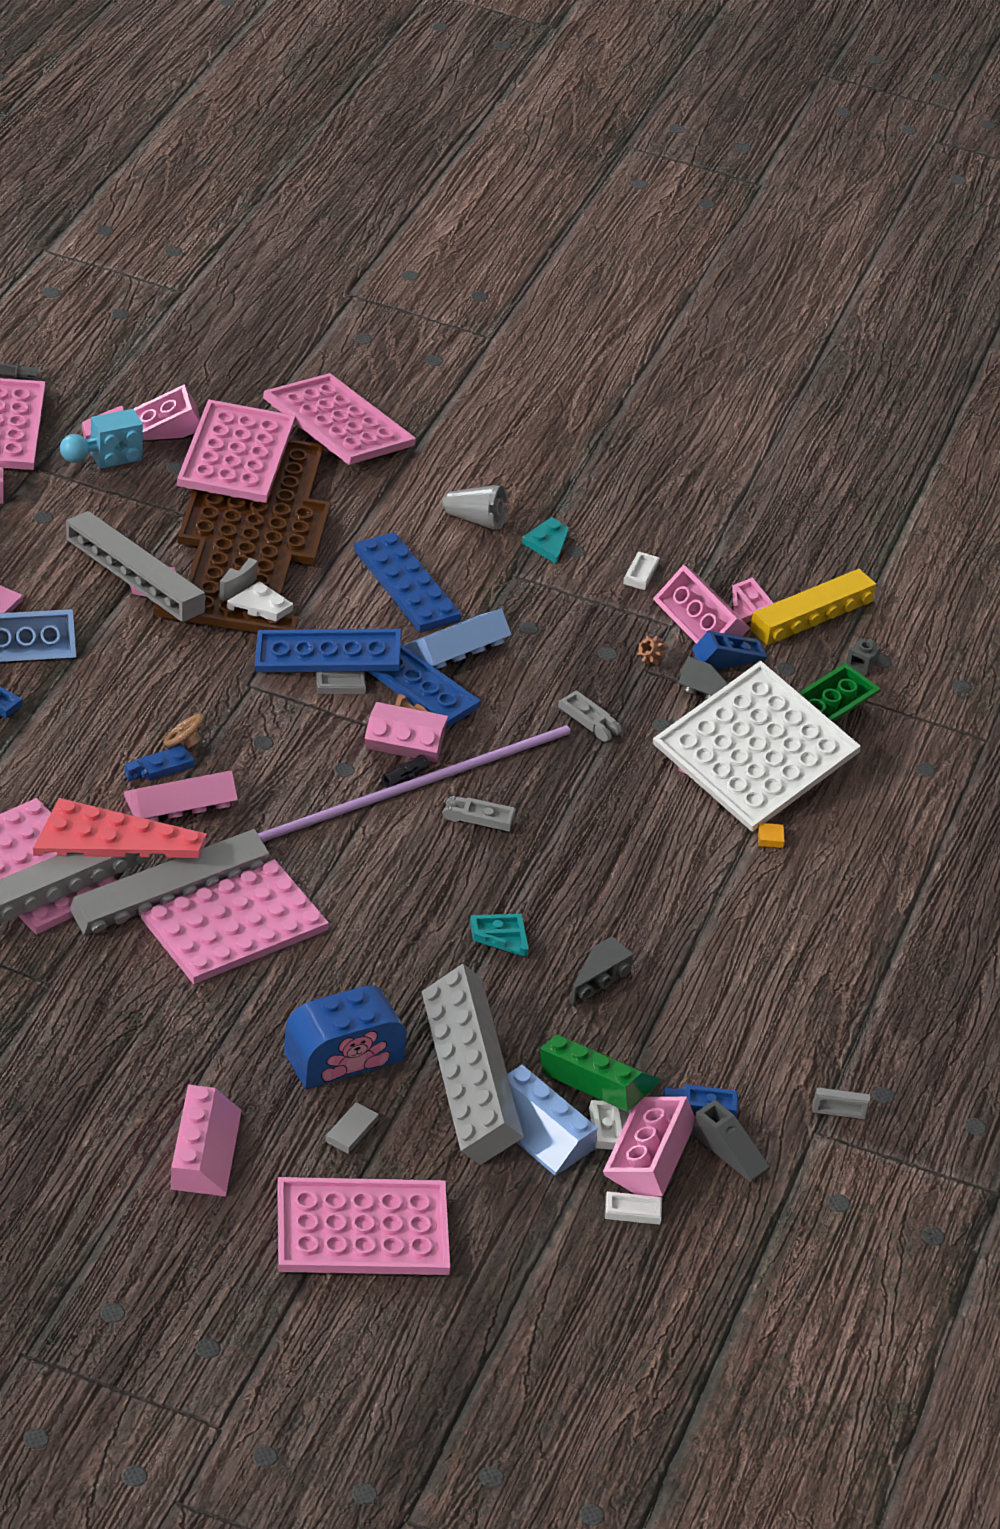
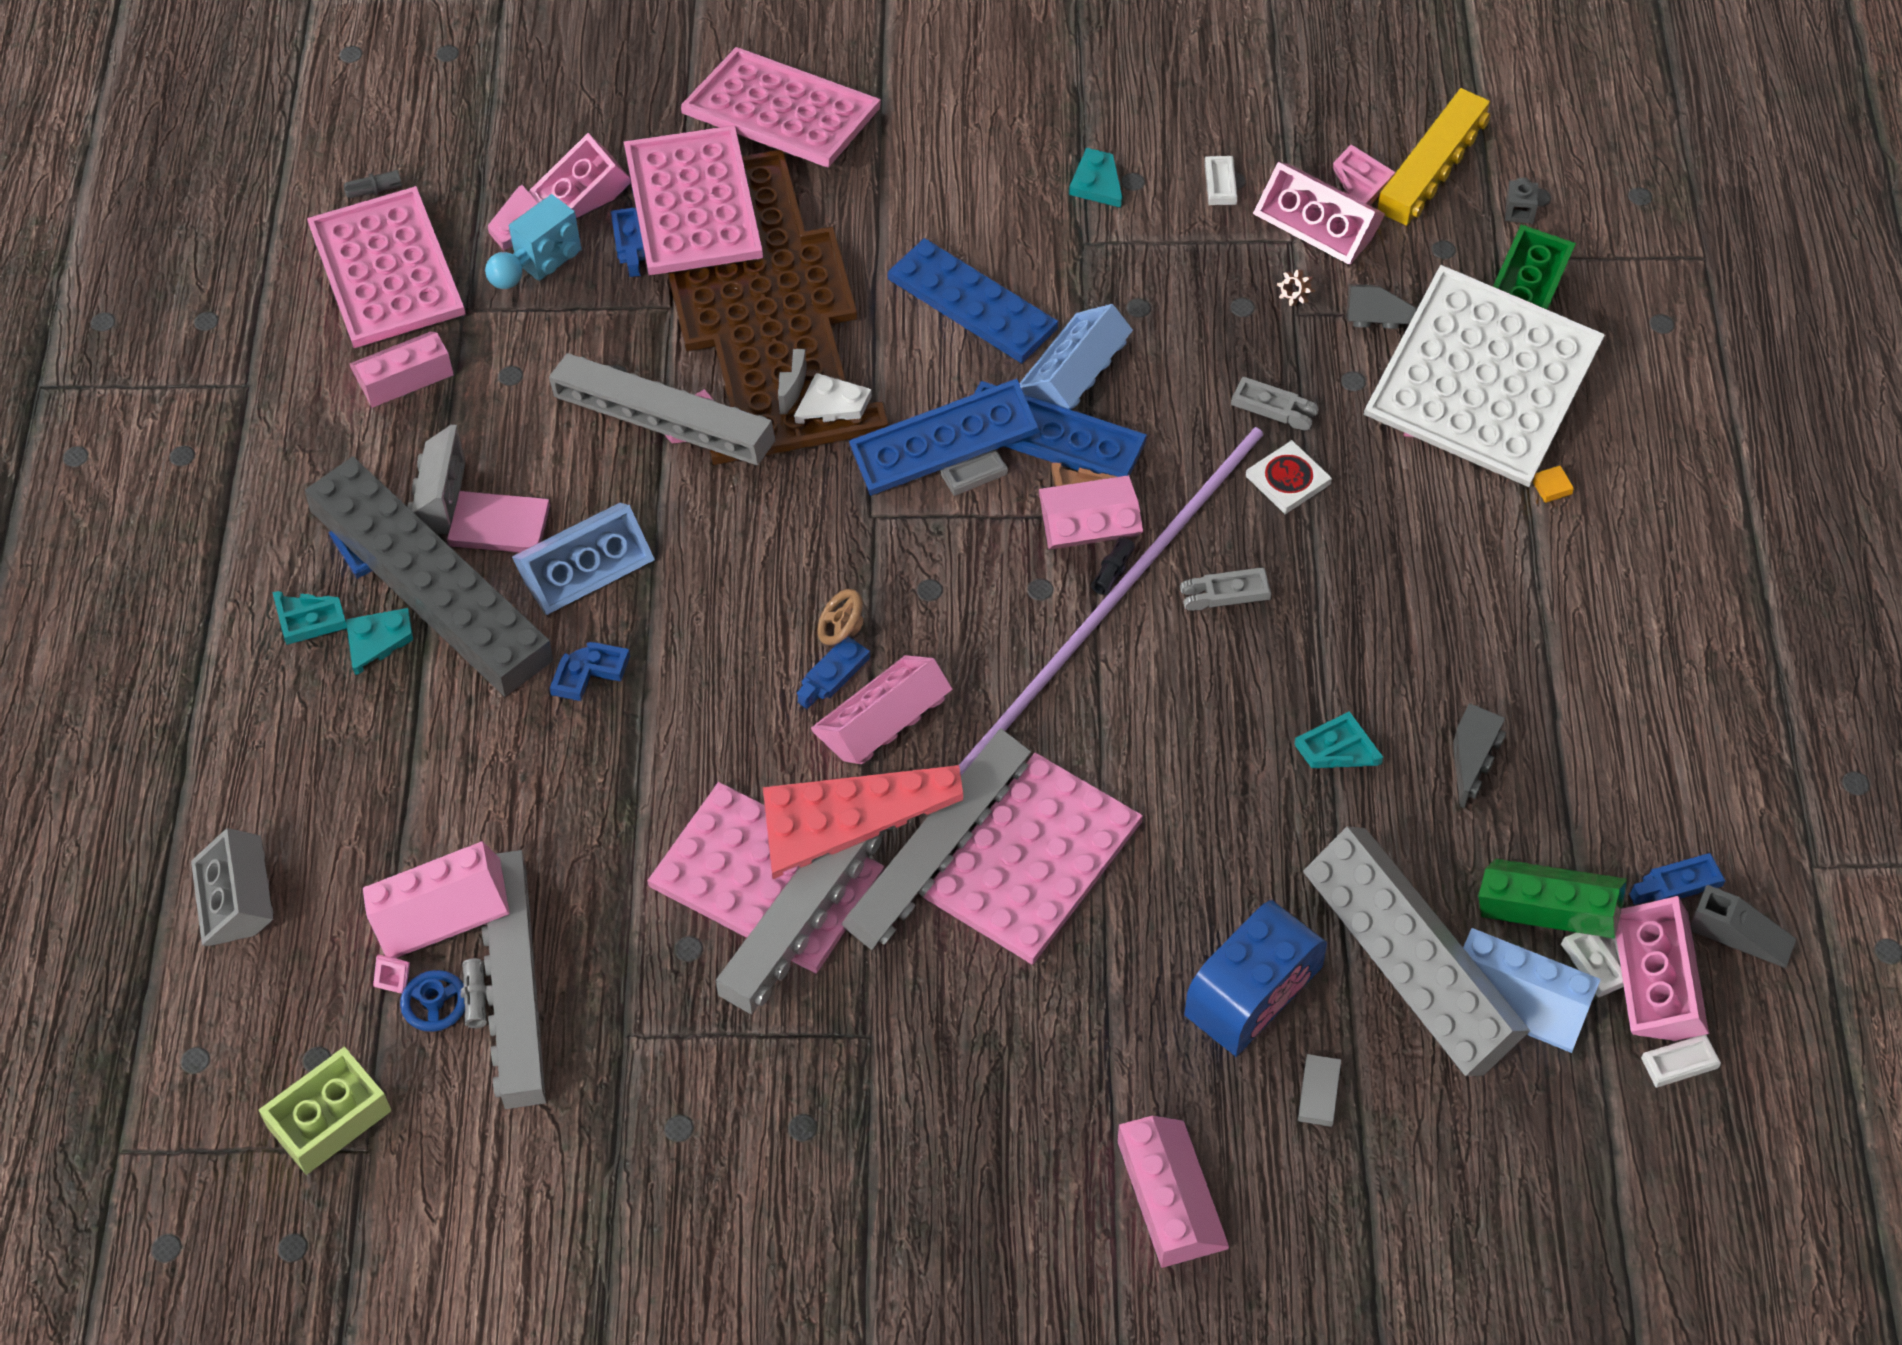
camera: 15 degrees left, 15 degrees up
(174, 463) = (628, 239): none -> blue hinge
(362, 1226) = (1407, 1226): bright pink plate -> none
(478, 505) = (1000, 166): light grey cone -> none
(572, 764) = (1288, 477): none -> tile
(728, 650) = (1376, 254): blue slope -> none
(841, 1103) = (1826, 819): light grey tile -> none

